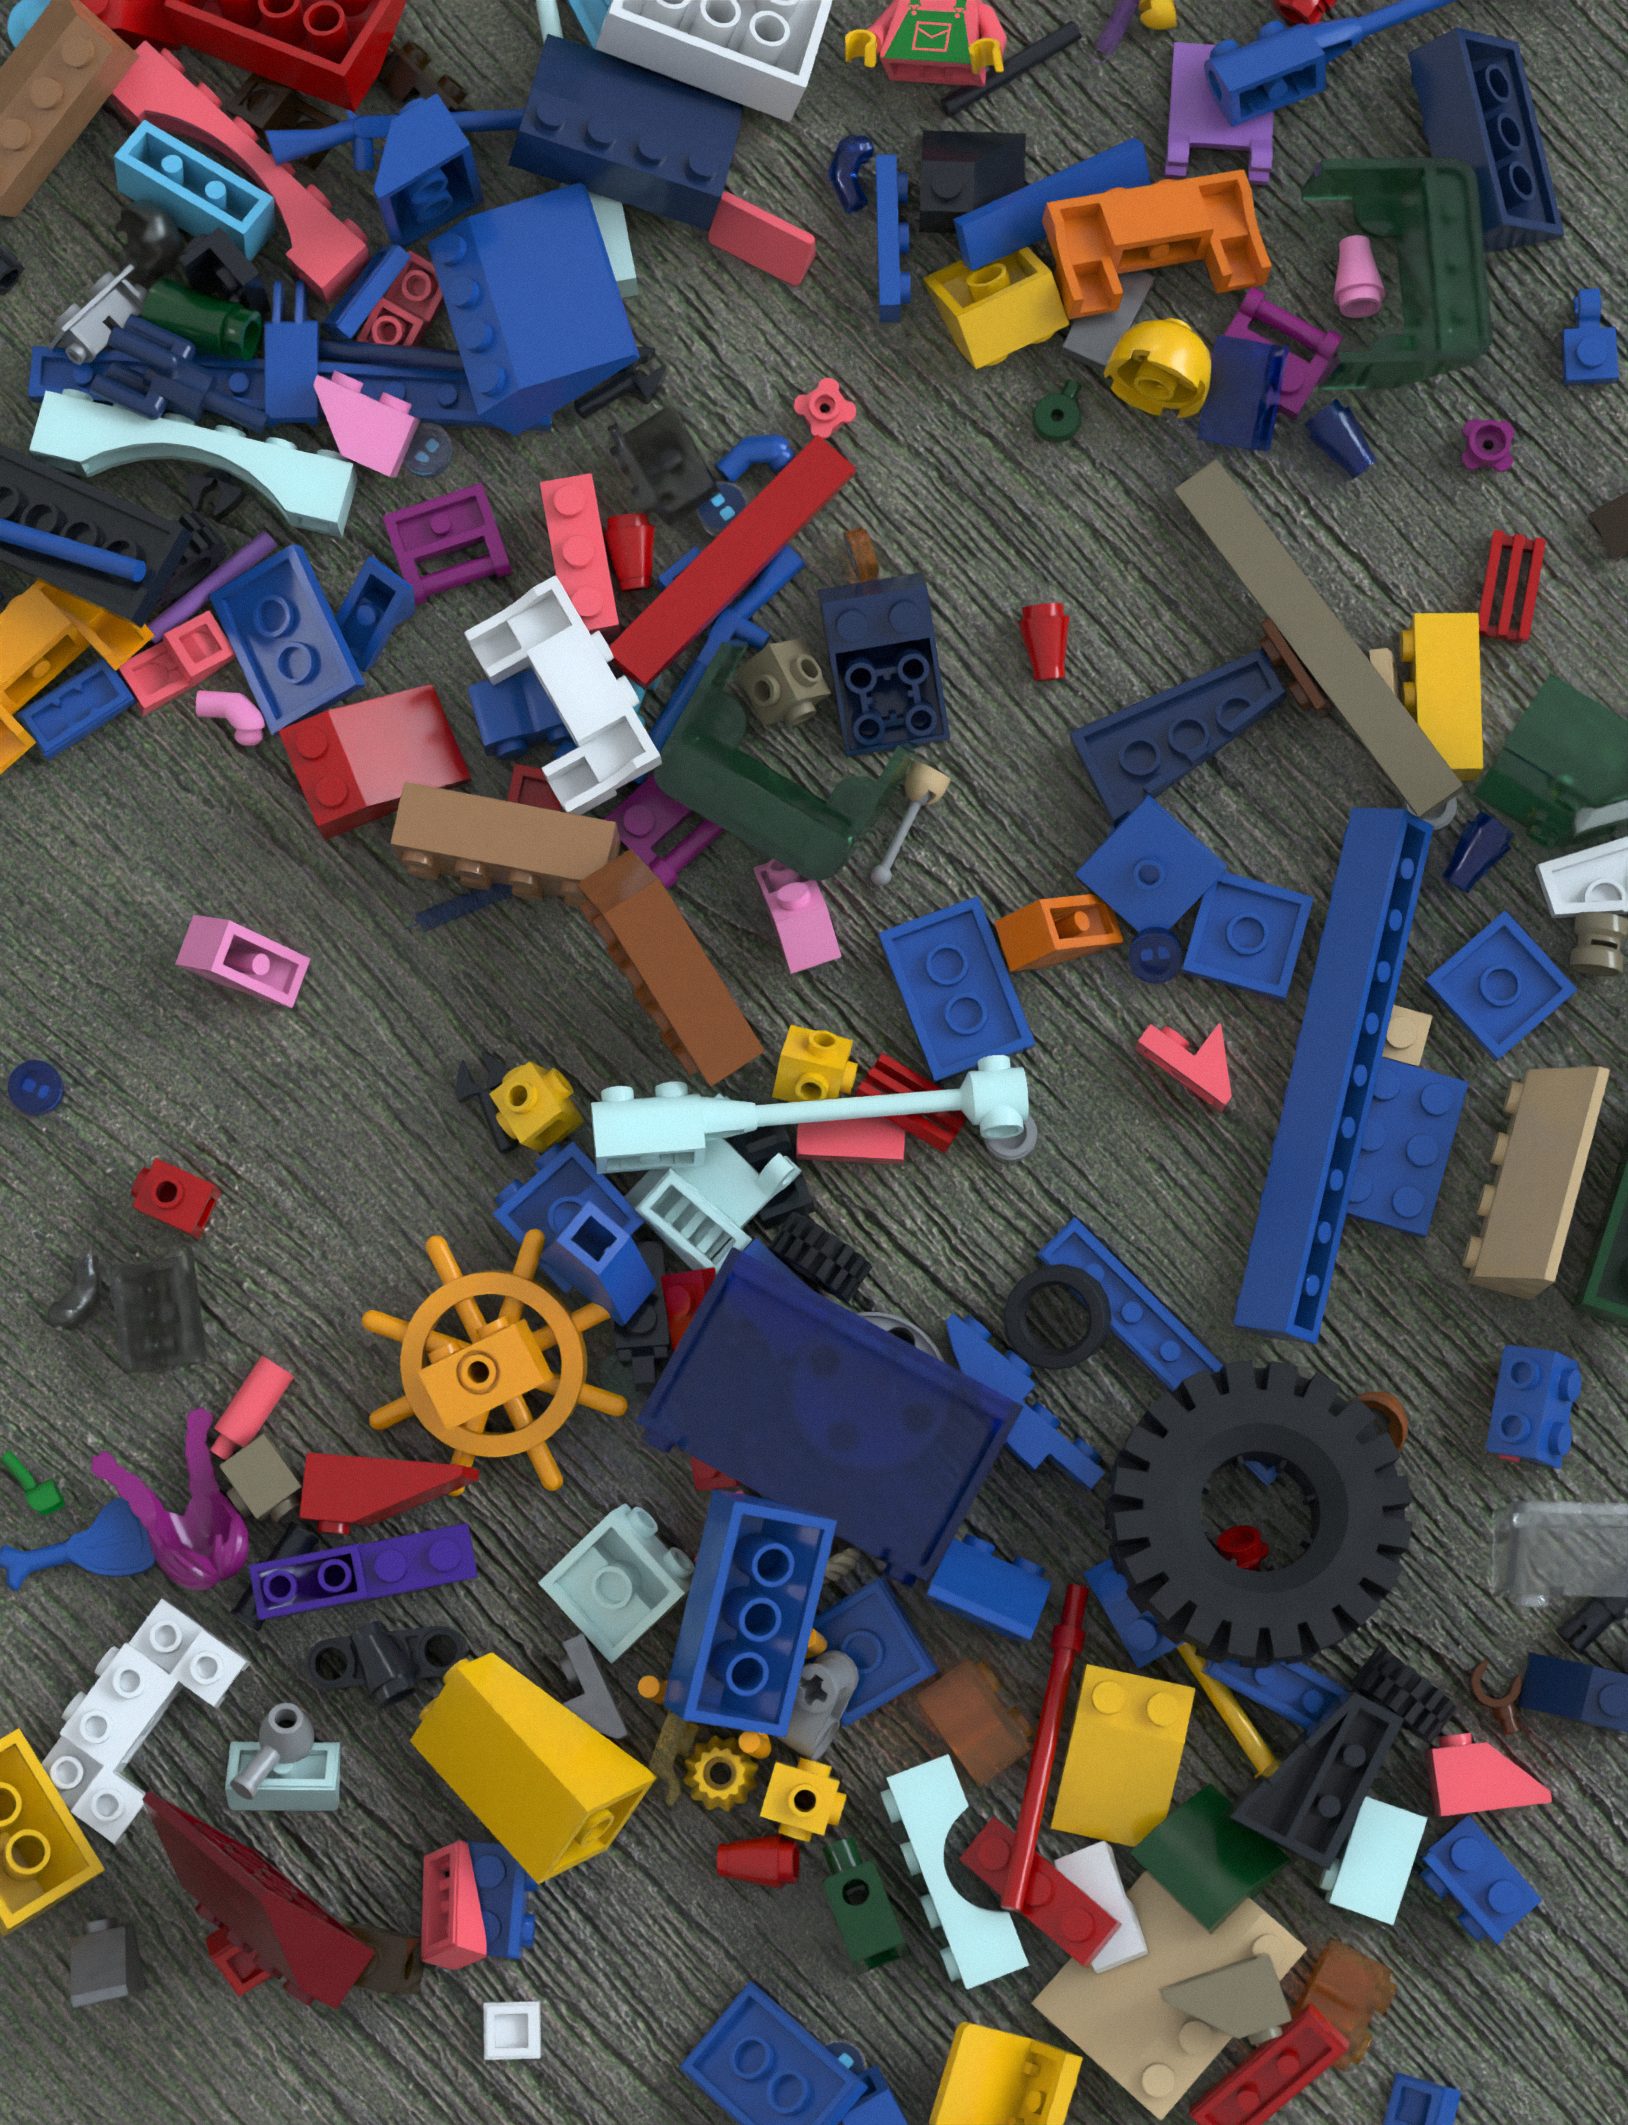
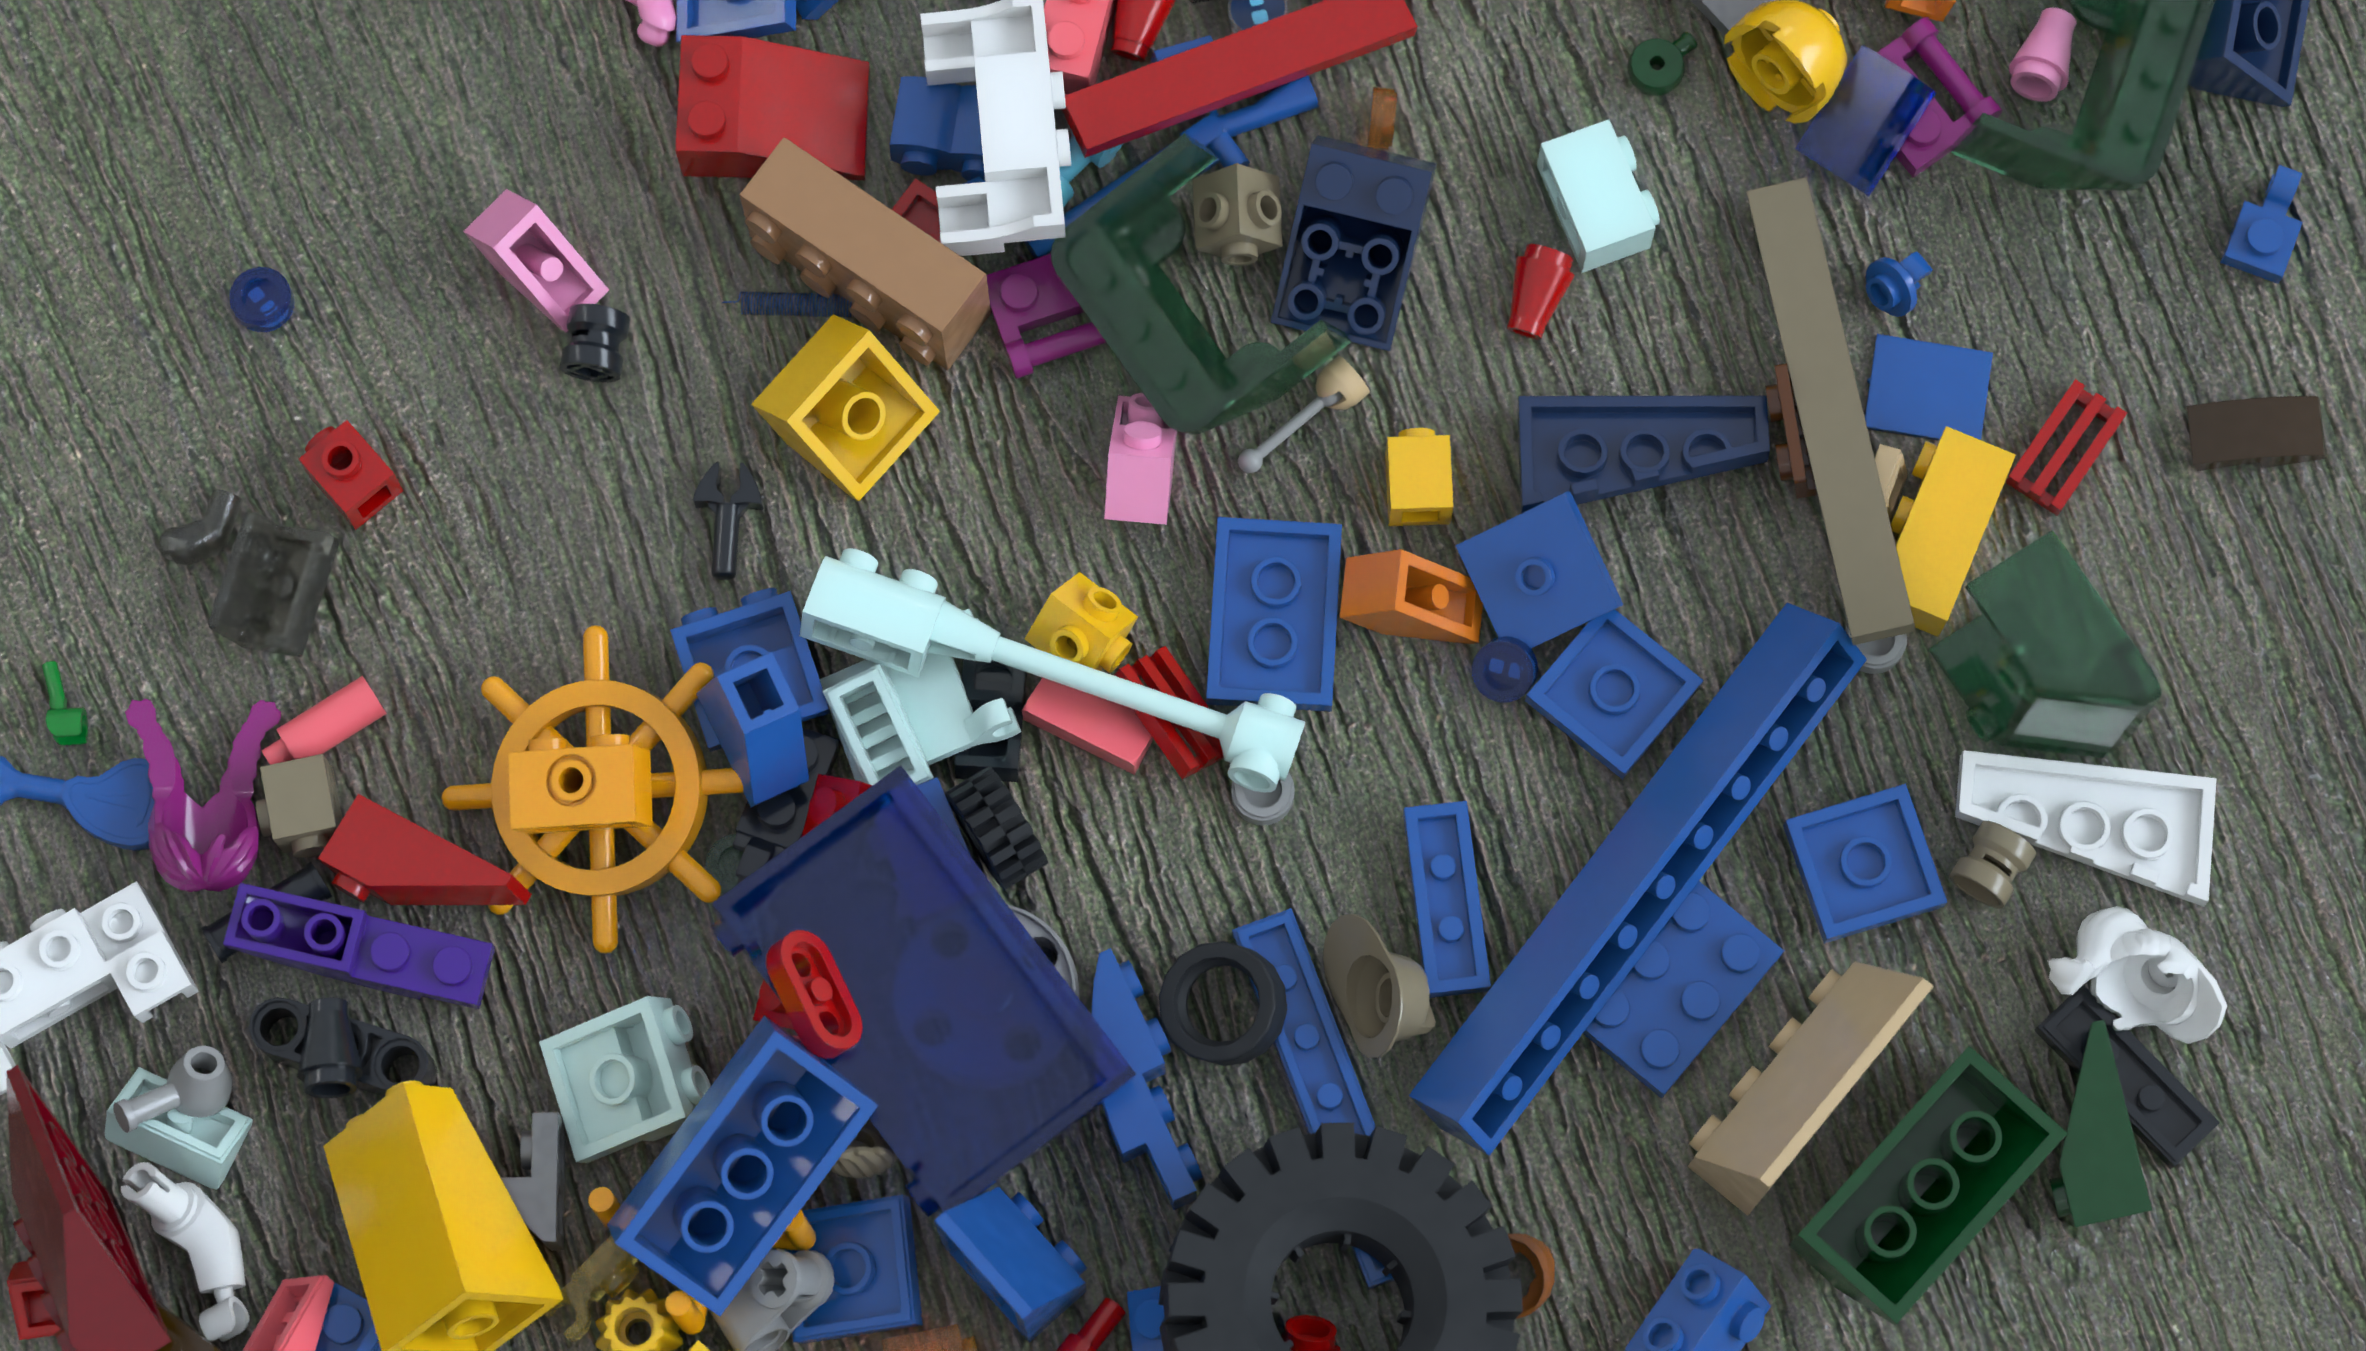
camera: 20 degrees right, 5 degrees down
(321, 1007) = (595, 343): none -> black wheel
(339, 1846) = (198, 1226): none -> white arm
(536, 1106) = (770, 540): yellow brick -> none
(543, 971) = (846, 406): none -> yellow slope
(667, 969) = (975, 461): dark orange brick -> none
(745, 1455) = (814, 994): none -> red plate
(1021, 832) = (1419, 478): none -> yellow brick
(1059, 543) = (1598, 195): none -> light aqua brick
(1171, 1254) = (1375, 989): none -> dark tan piece
(1191, 1157) = (1446, 899): none -> blue plate
(1202, 1074) = (1495, 812): coral slope -> none
(1321, 515) = (1894, 284): none -> blue plate
(1341, 438) = (1951, 212): clear blue cone -> none
(1381, 586) = (1925, 387): none -> blue window
(1406, 1036) = (1737, 871): tan plate -> none
(1477, 851) = (1904, 709): clear blue cone -> none
(1492, 431) = (2115, 273): magenta plate -> none

